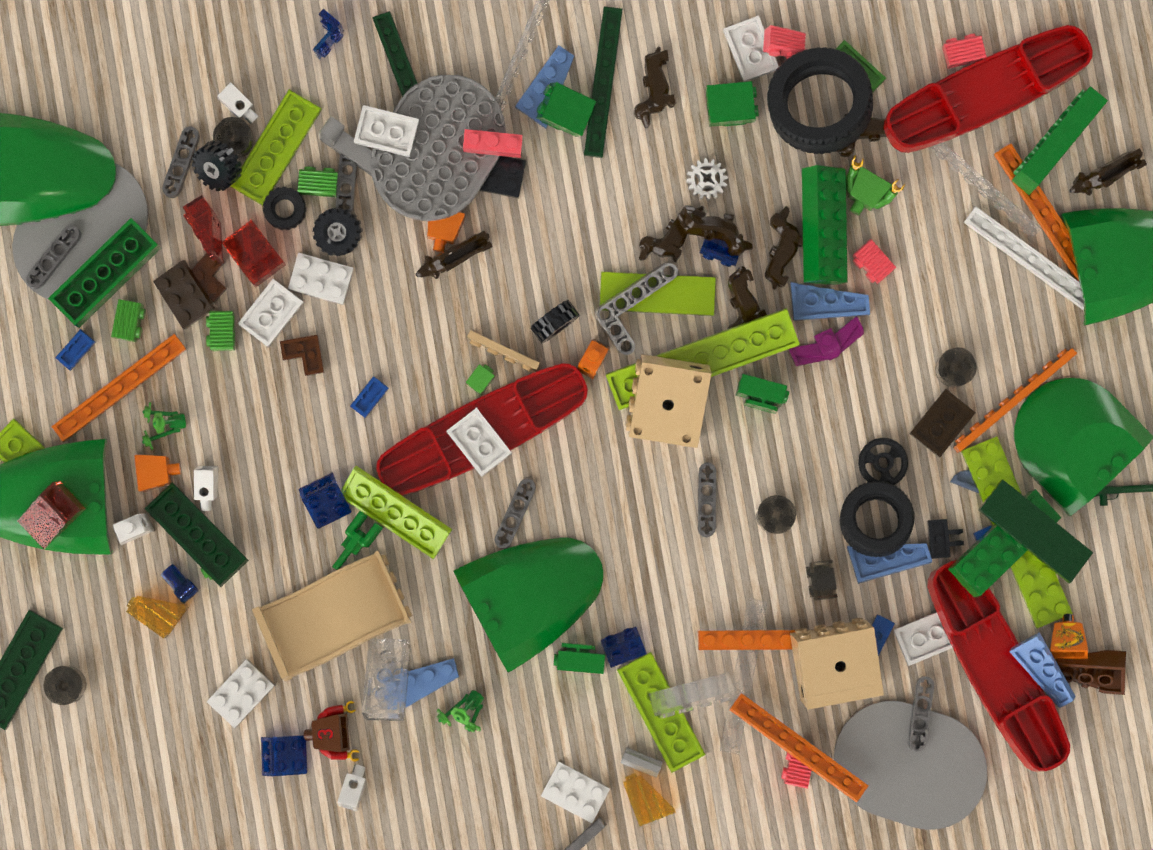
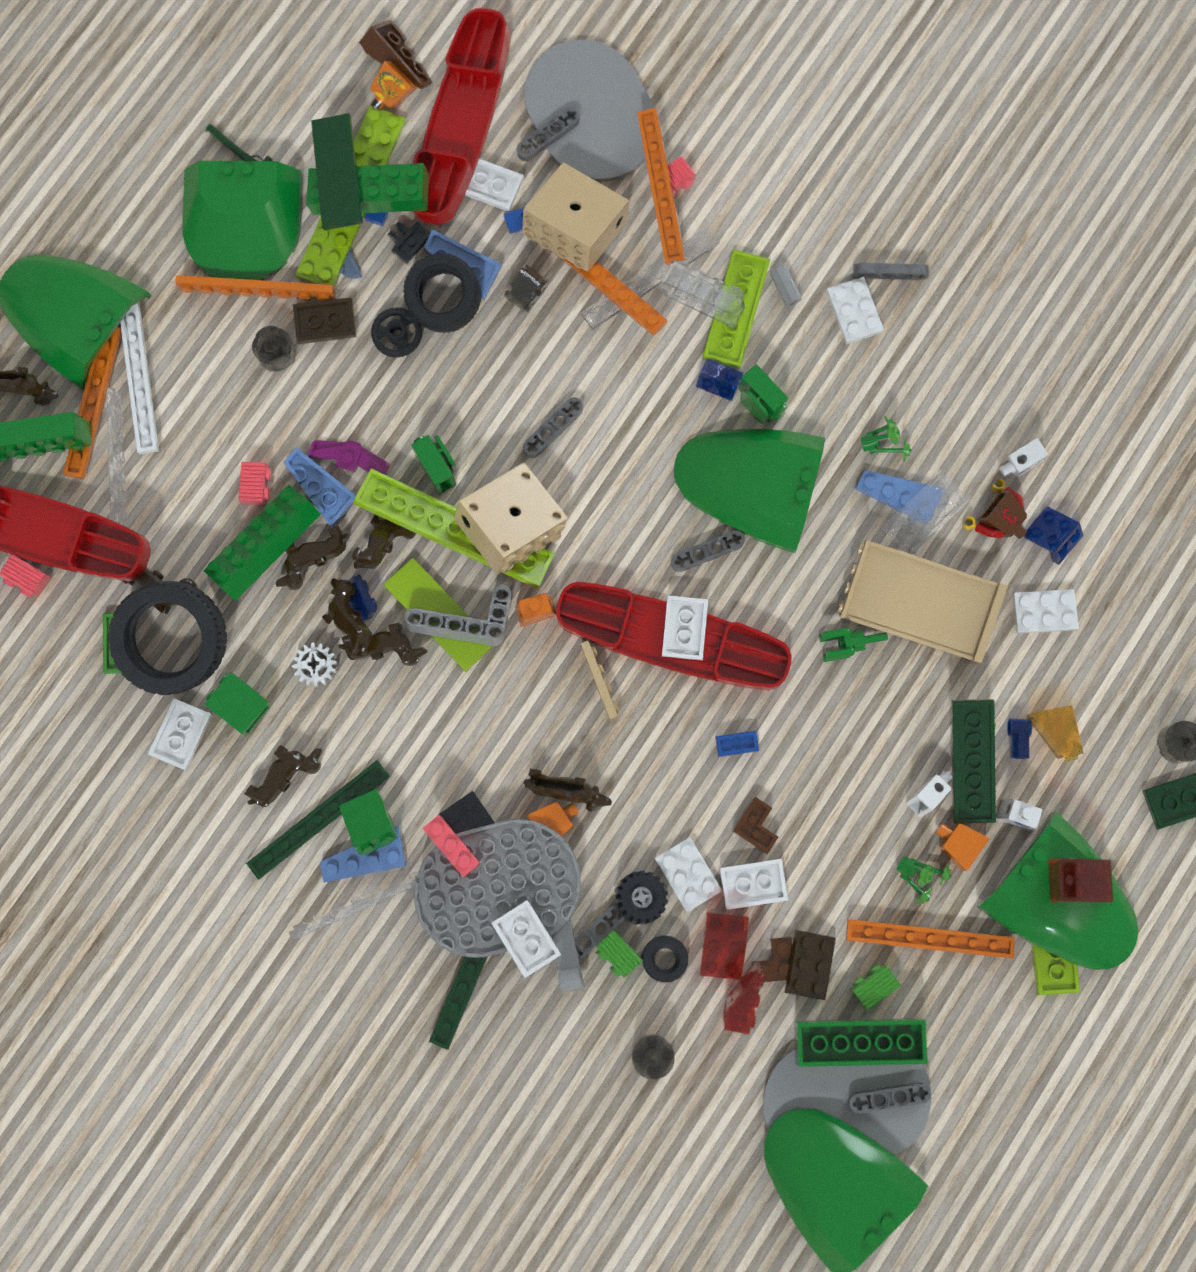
camera: 135 degrees left, 5 degrees down
(75, 350) = (938, 1003): blue plate -> none
(177, 161) = (715, 1082): flat silver beam -> none
(216, 165) = (688, 1044): black wheel -> none
(221, 330) = (806, 907): bright green brick -> none
(231, 97) = (623, 1091): white torso -> none
(276, 146) = (625, 1016): lime tile -> none
(324, 500) = (846, 697): clear blue bracket -> none
(334, 34) = (487, 1076): clear blue bracket -> none
(395, 512) = (800, 635): lime tile -> none
(481, 378) = (637, 675): bright green brick -> none
(555, 321) = (538, 662): black wheel -> none
(646, 800) = (808, 255): clear yellow slope -> none
(779, 504) = (508, 357): clear smoke brick -> none
(783, 41) = (149, 712): coral brick -> none
(868, 189) = (201, 539): bright green torso -> none
(1042, 667) = (429, 83): medium blue wing -> none

